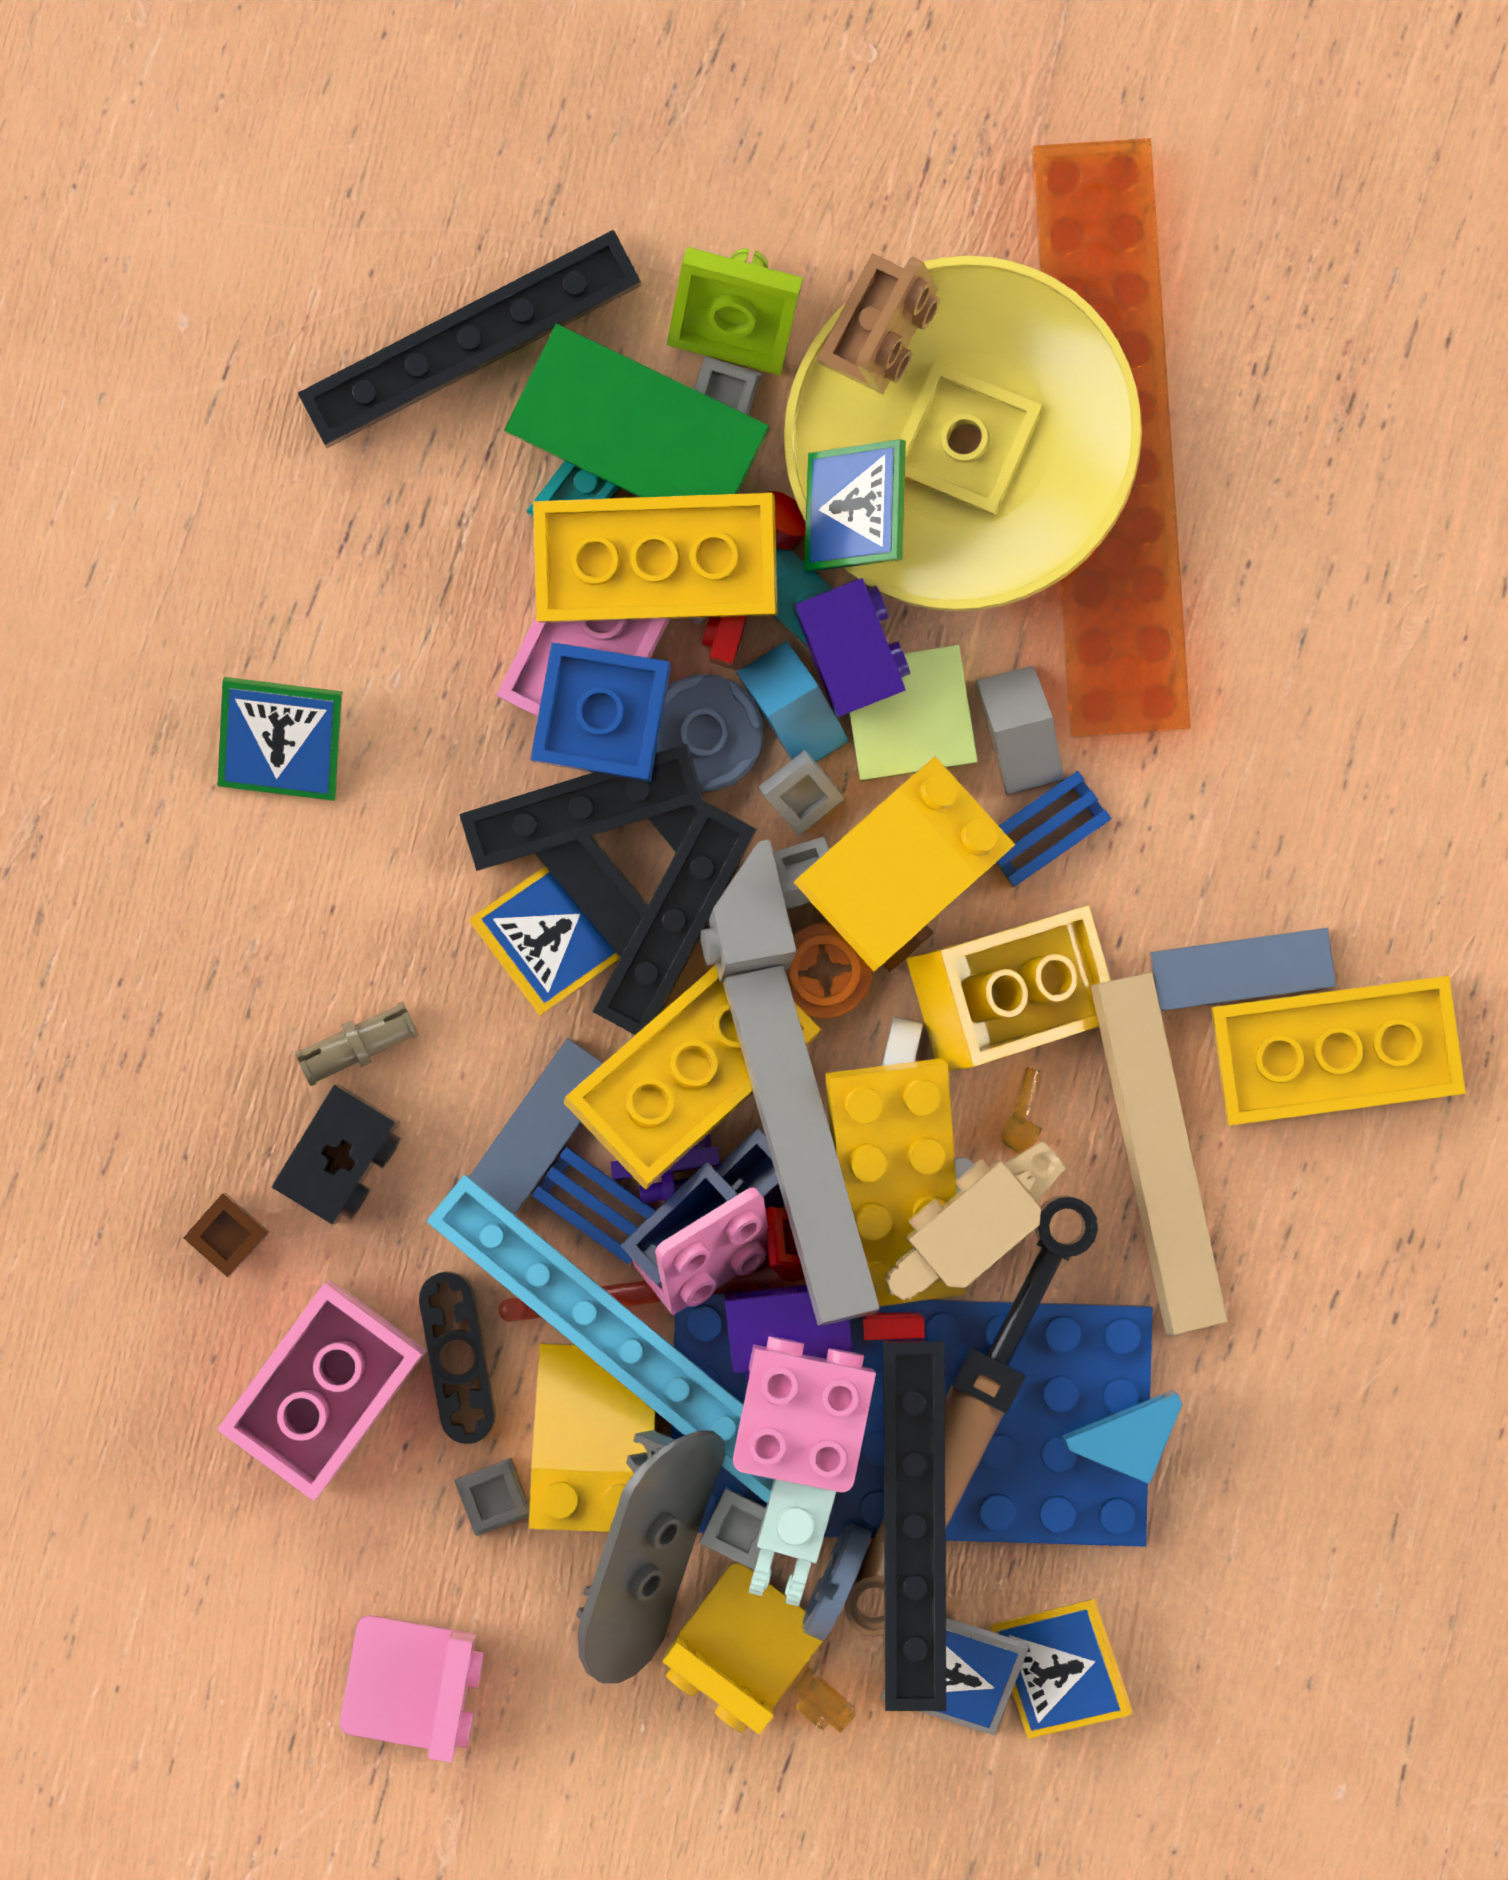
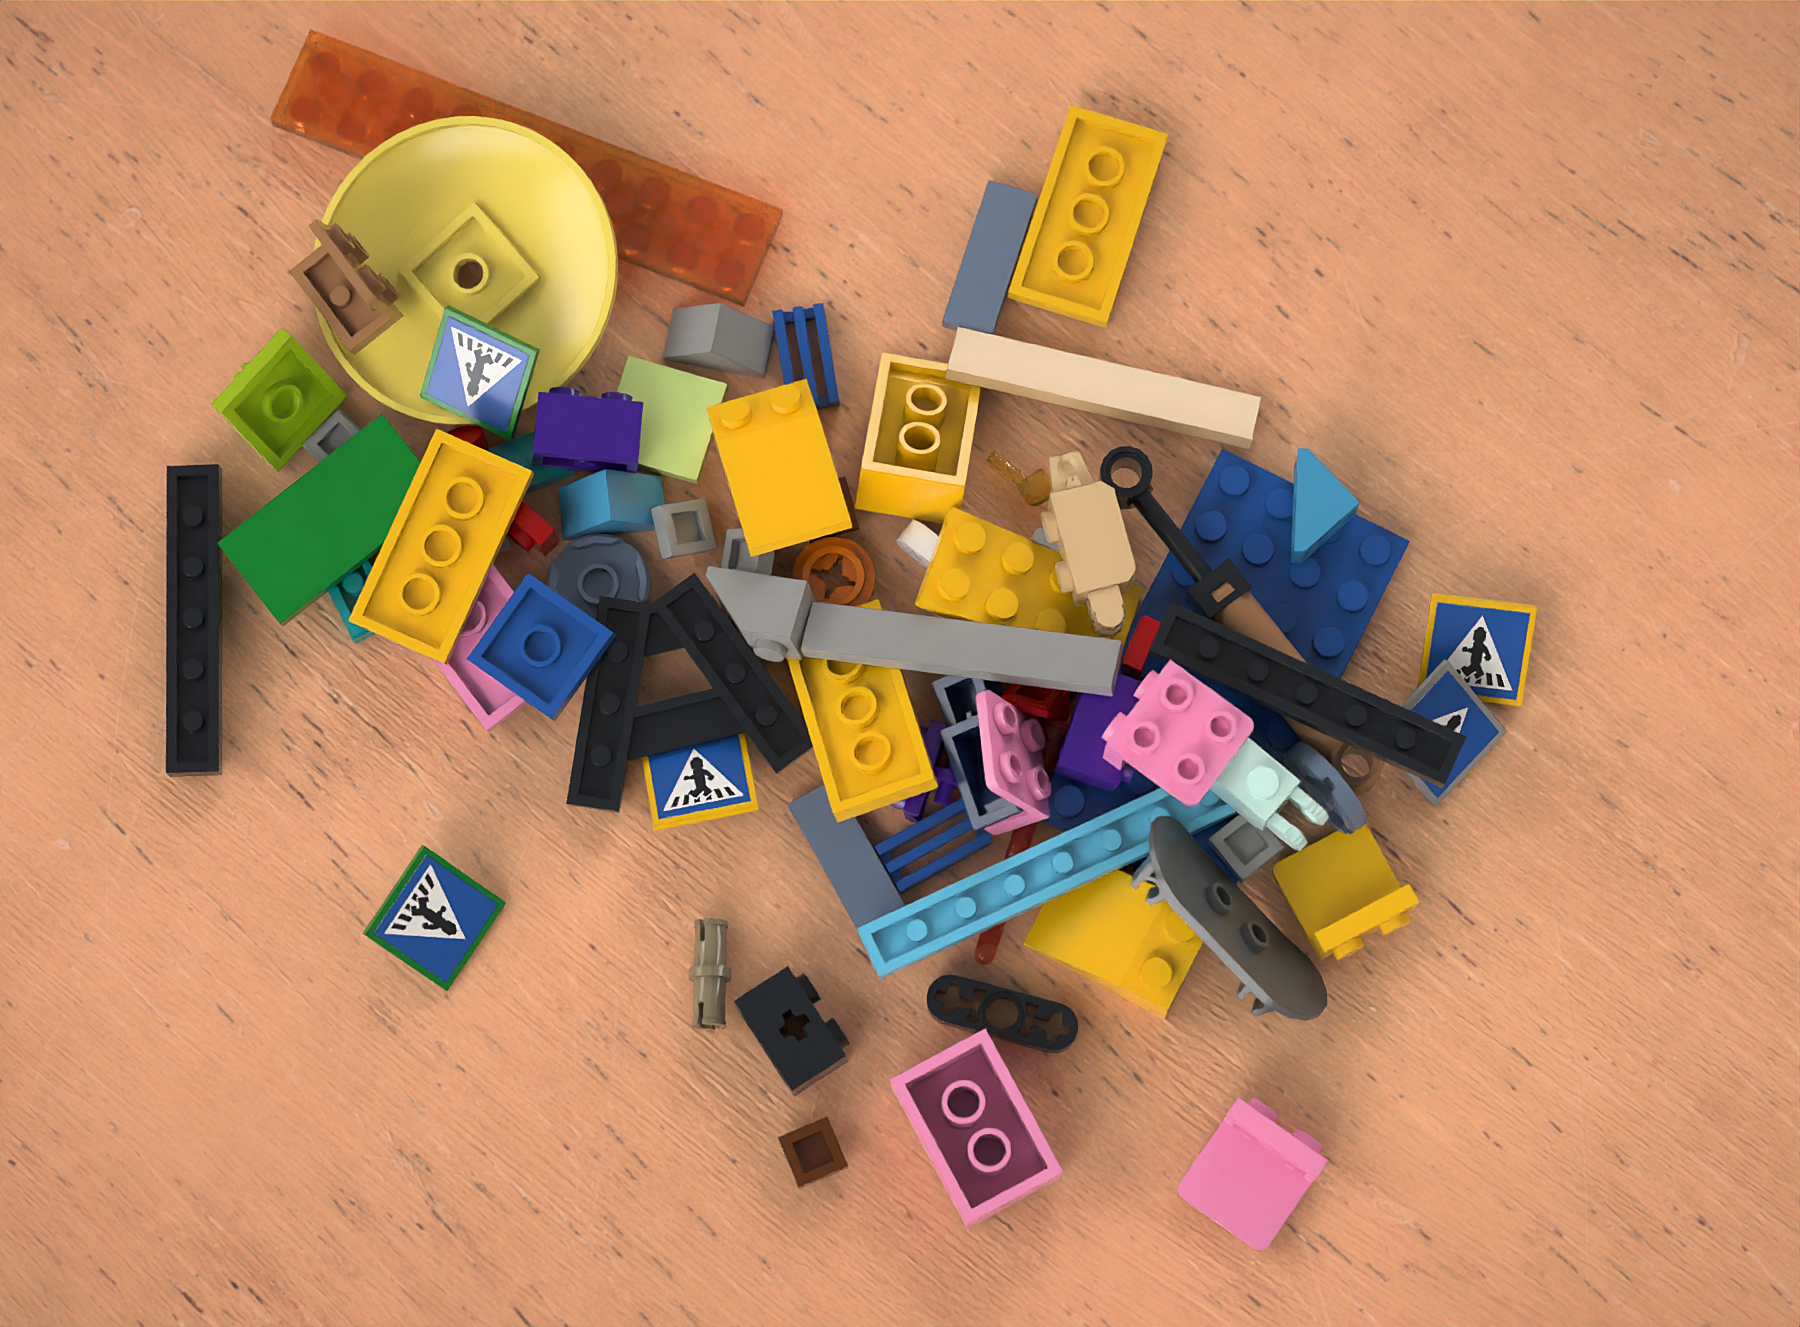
camera: 65 degrees left, 10 degrees down
(493, 1496) = (1129, 1039): flat silver tile -> none
(823, 1703) = (1418, 849): clear yellow plate -> none

